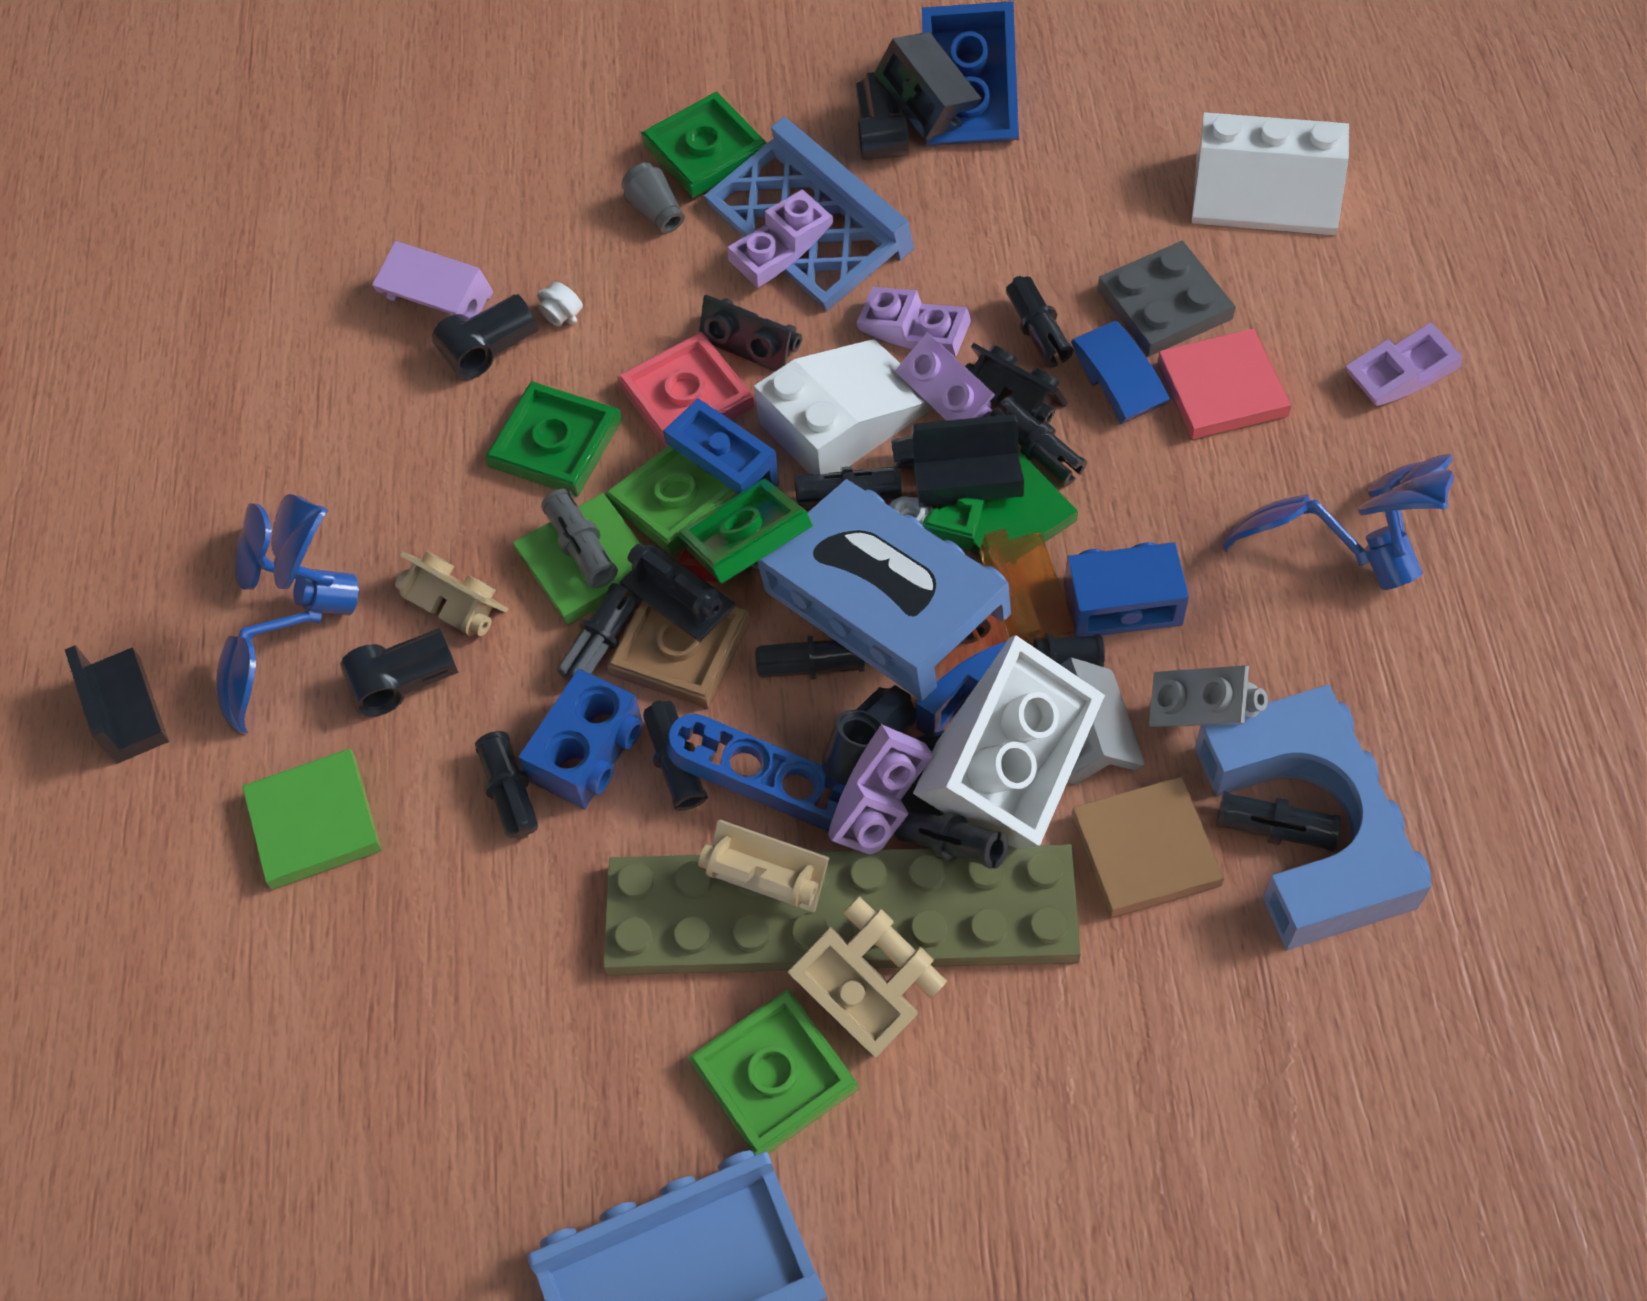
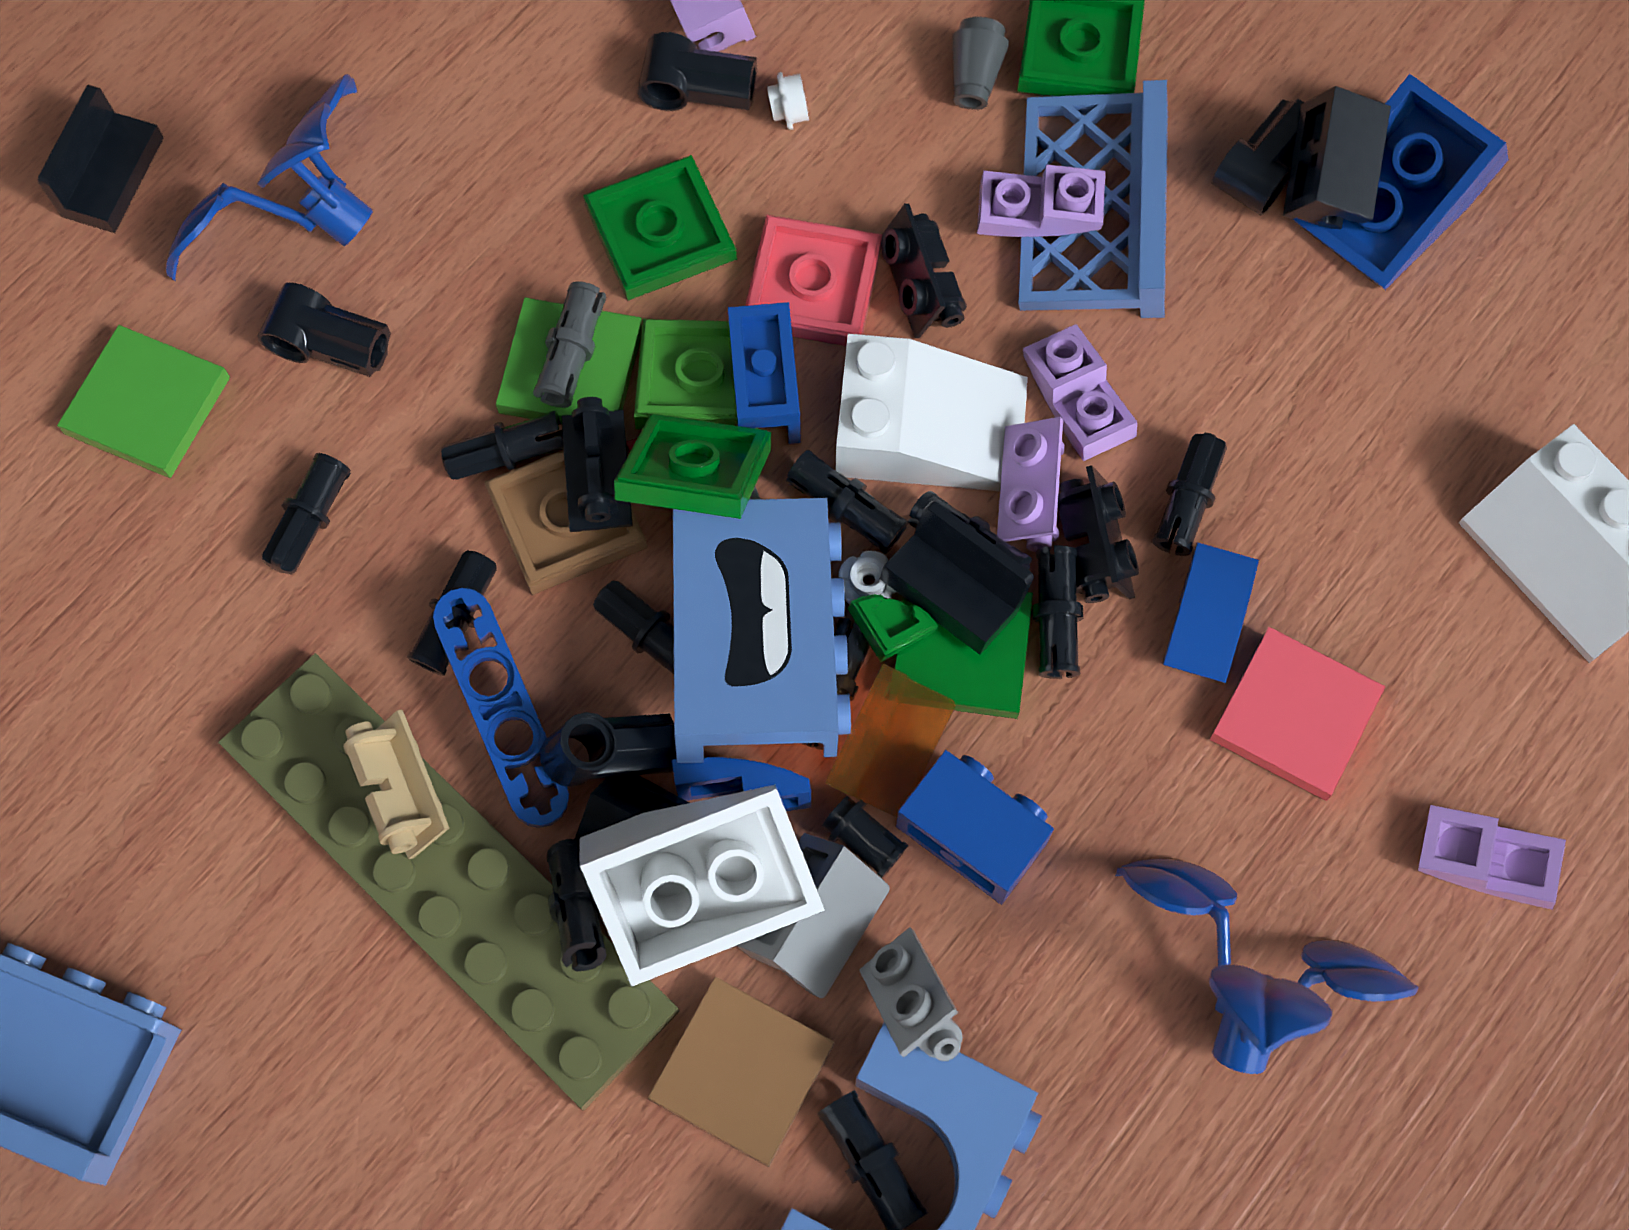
camera: 40 degrees right, 10 degrees up
(466, 602) = (430, 275): tan hinge -> none
(570, 734) = (393, 513): blue brick -> none
(773, 1073) = (254, 958): bright green tile -> none
(853, 990) = (370, 955): tan plate -> none
(871, 800) = (550, 807): lavender slope -> none
(1166, 298) = (1341, 578): dark grey plate -> none

